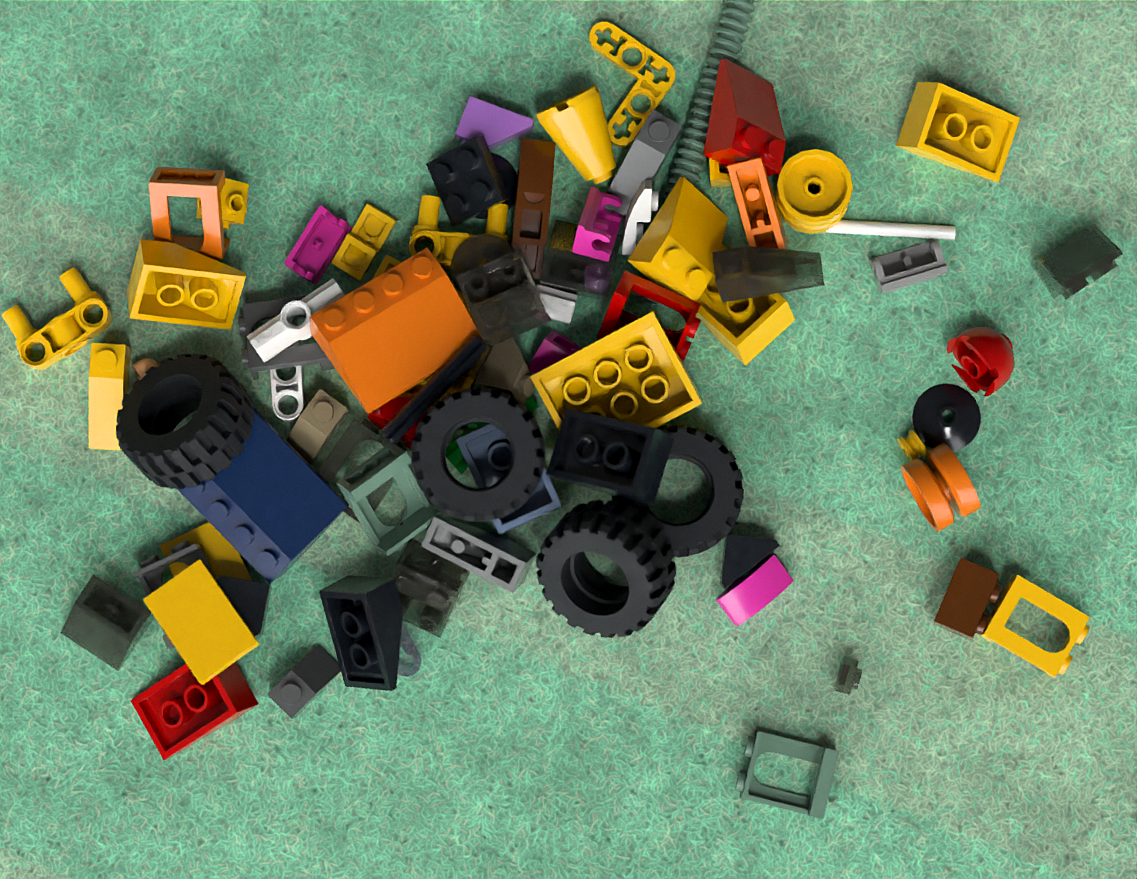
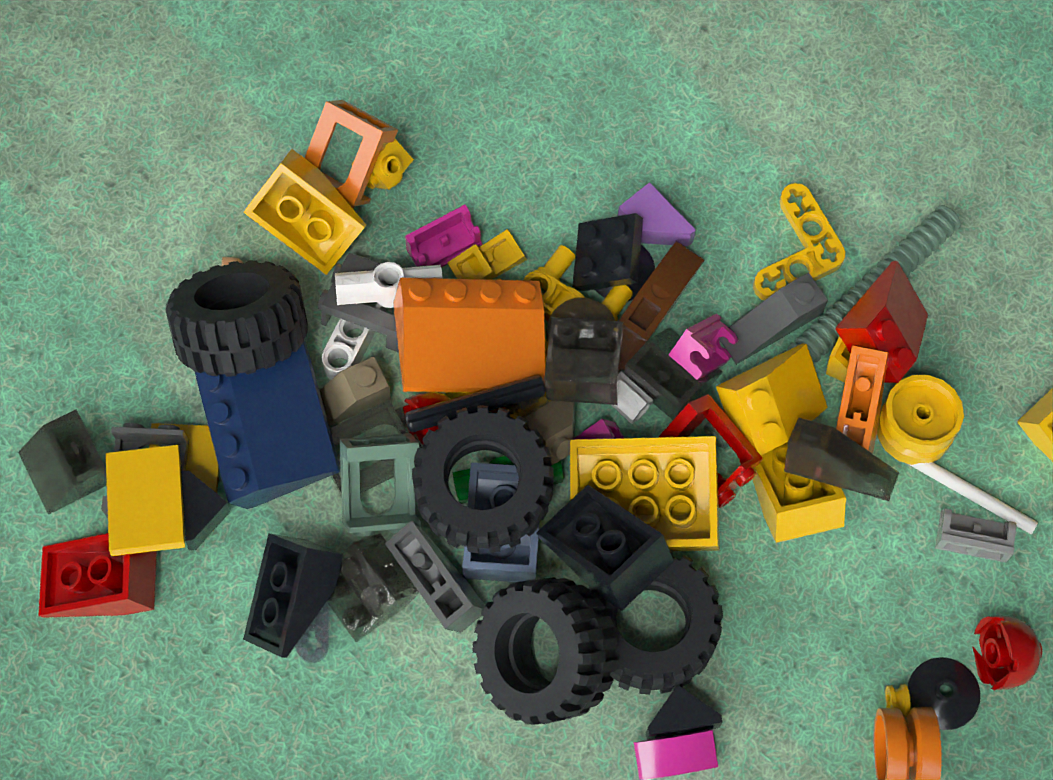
camera: 25 degrees right, 15 degrees down
(65, 332) = (181, 200): yellow piece -> none
(107, 387) = (195, 251): yellow slope -> none
(304, 682) = (207, 613): dark grey slope -> none
(581, 133) = (732, 262): yellow cone -> none
(597, 278) = (679, 385): clear purple hinge -> none
(639, 211) = (753, 352): white slope -> none

